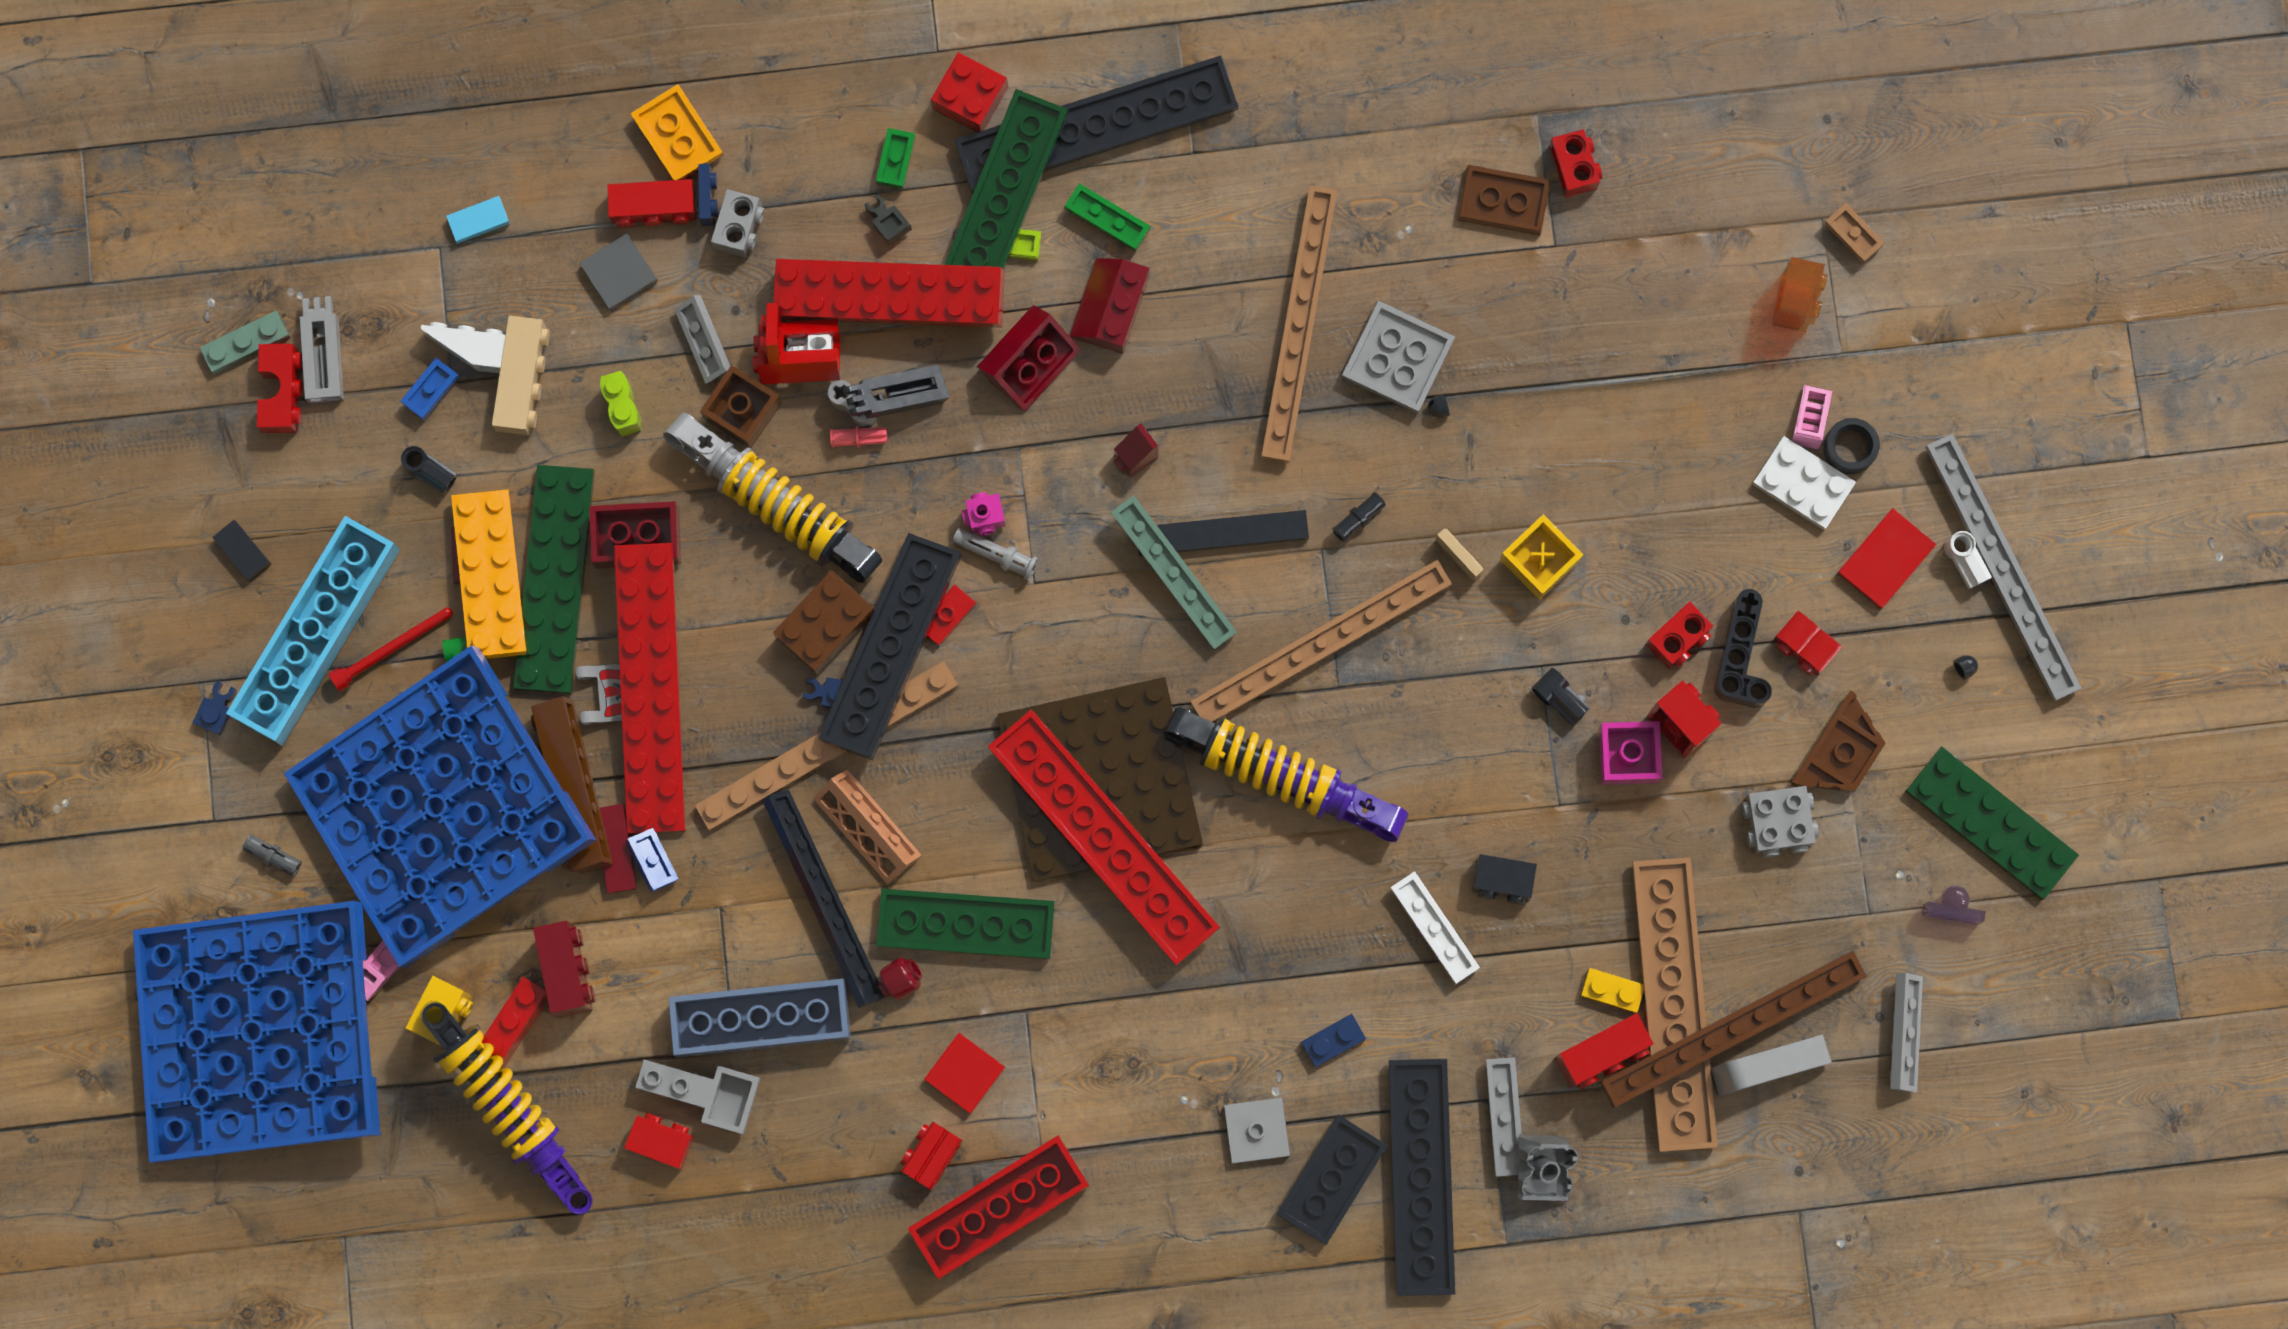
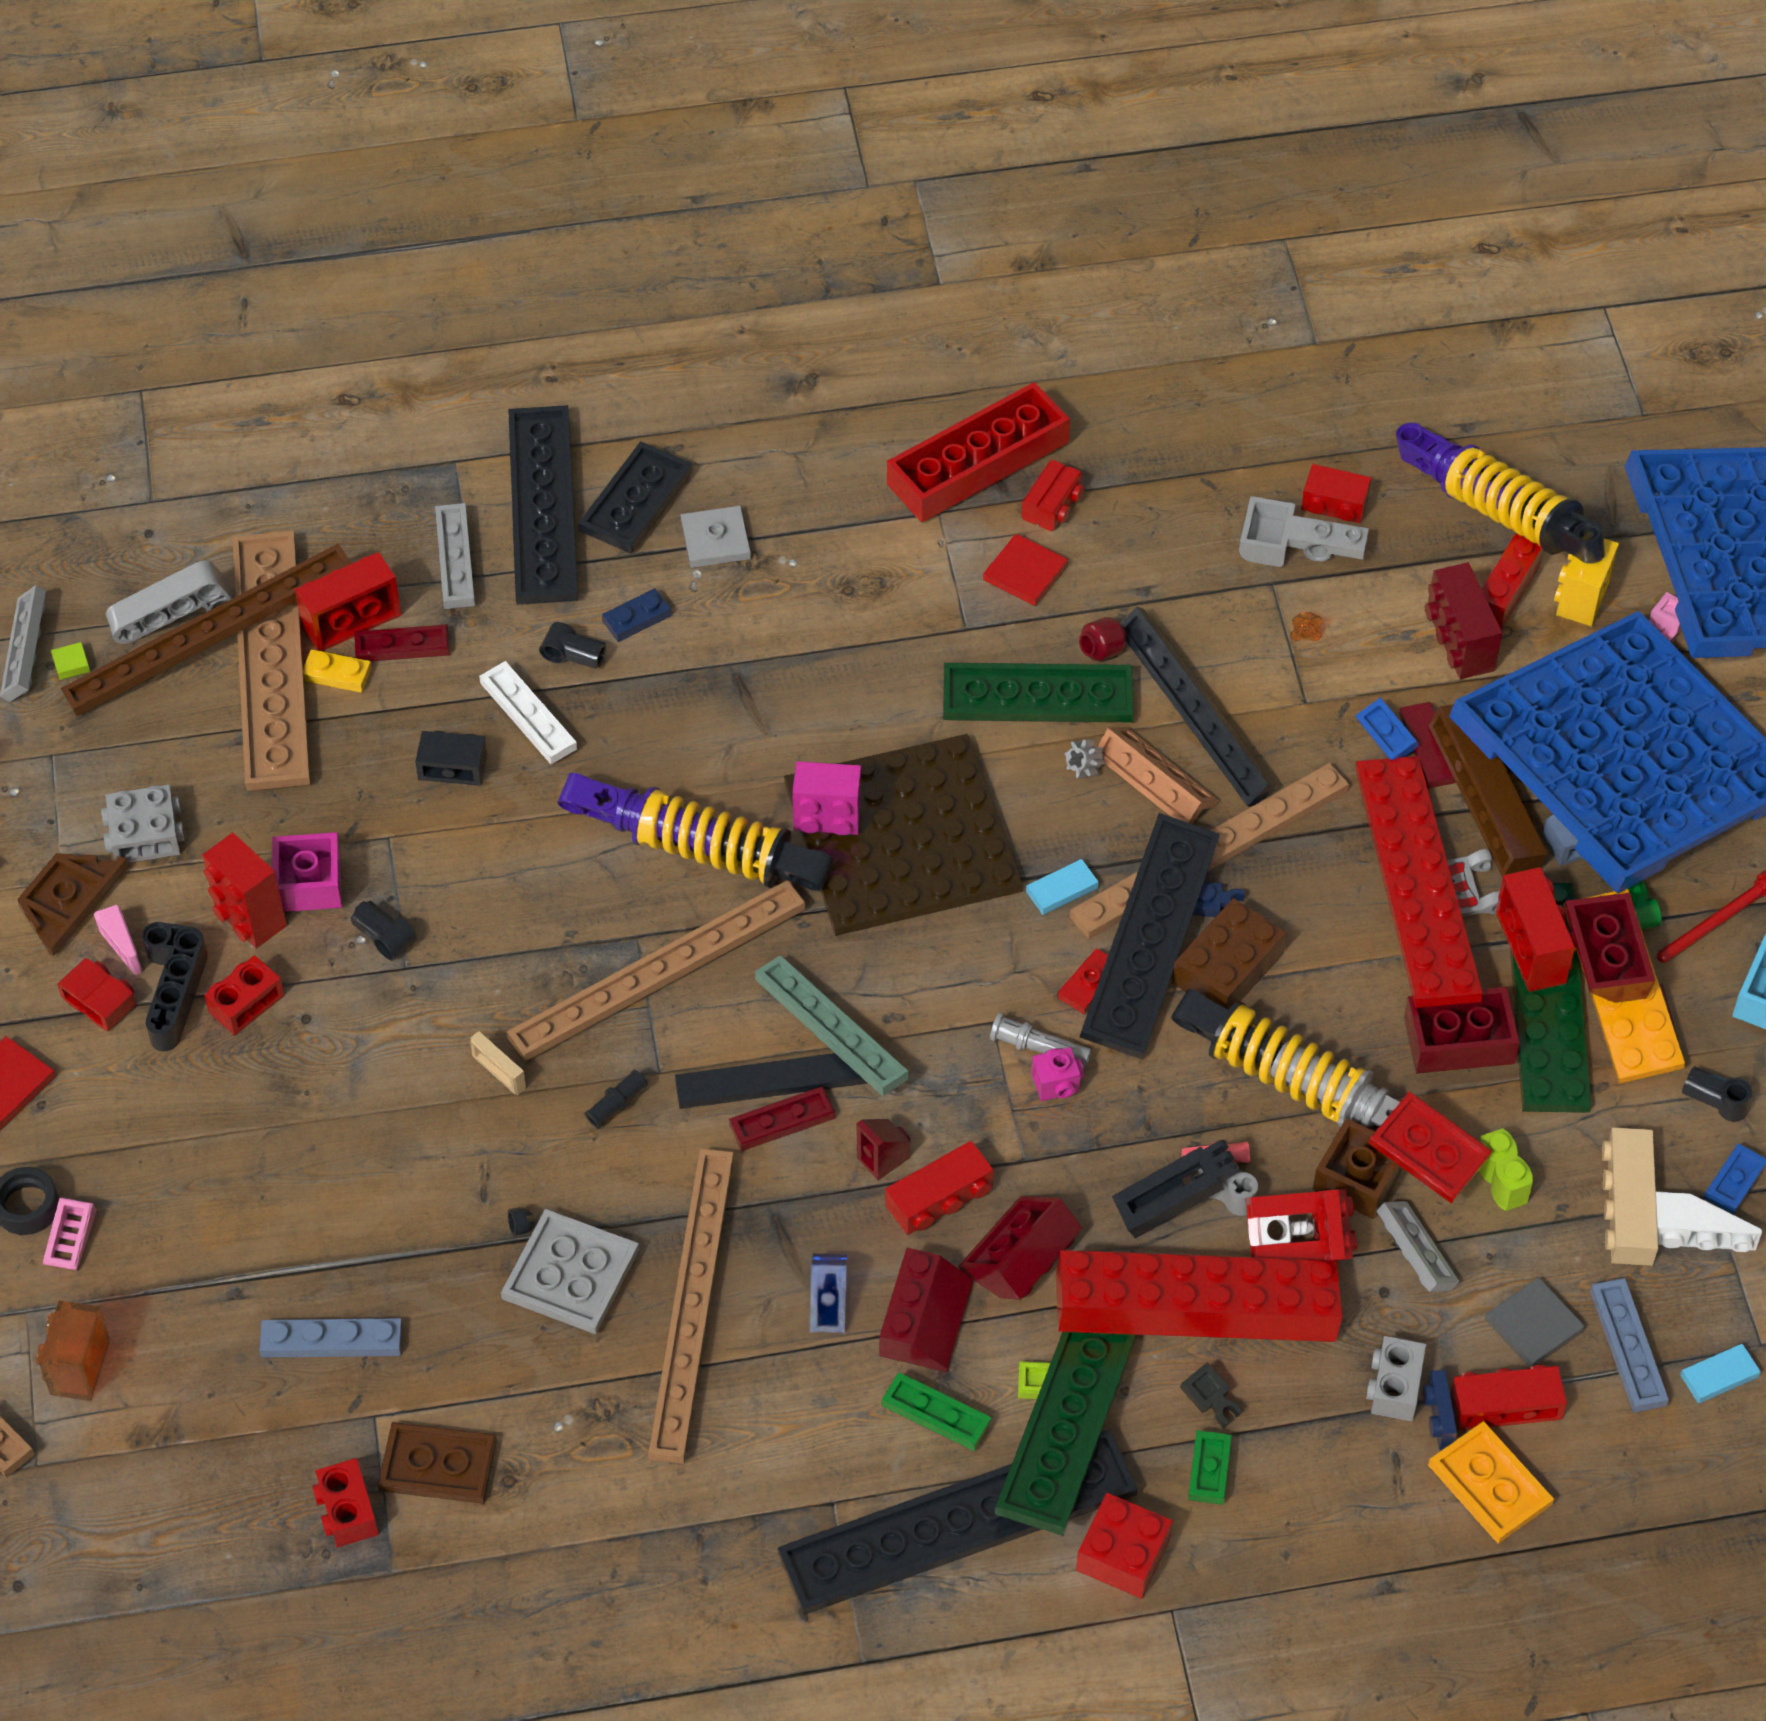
camera: 175 degrees right, 25 degrees down
(497, 578) = (1611, 947): none -> dark red slope
(546, 245) = (1629, 1345): none -> sand blue plate
(556, 613) = (1535, 929): none -> red brick
(681, 406) = (1430, 1147): none -> red tile
(709, 983) = (1309, 621): none -> clear orange plate
(759, 1018) = (1246, 593): sand blue brick -> none
(930, 842) = (1084, 758): none -> light grey gear
(962, 713) = (1062, 887): none -> medium azure tile
(1091, 413) = (939, 1188): none -> red brick
(1103, 837) = (896, 764): red plate -> none
(1166, 785) = (827, 798): none -> dark pink brick
(1187, 326) = (828, 1293): none -> clear blue slope
(1219, 495) = (782, 1118): none -> dark red tile
(1399, 1002) = (564, 644): none -> black piece
(1541, 557) = (401, 1058): yellow brick -> none
(1545, 1167) = (413, 514): dark grey slope -> none
(1552, 1020) = (402, 643): none -> dark red tile
(1592, 312) = (331, 1337): none -> sand blue plate
(1792, 702) = (115, 931): none -> bright pink slope
(1804, 483) = (87, 1163): white plate -> none
(1861, 1015) = (70, 661): none -> lime tile

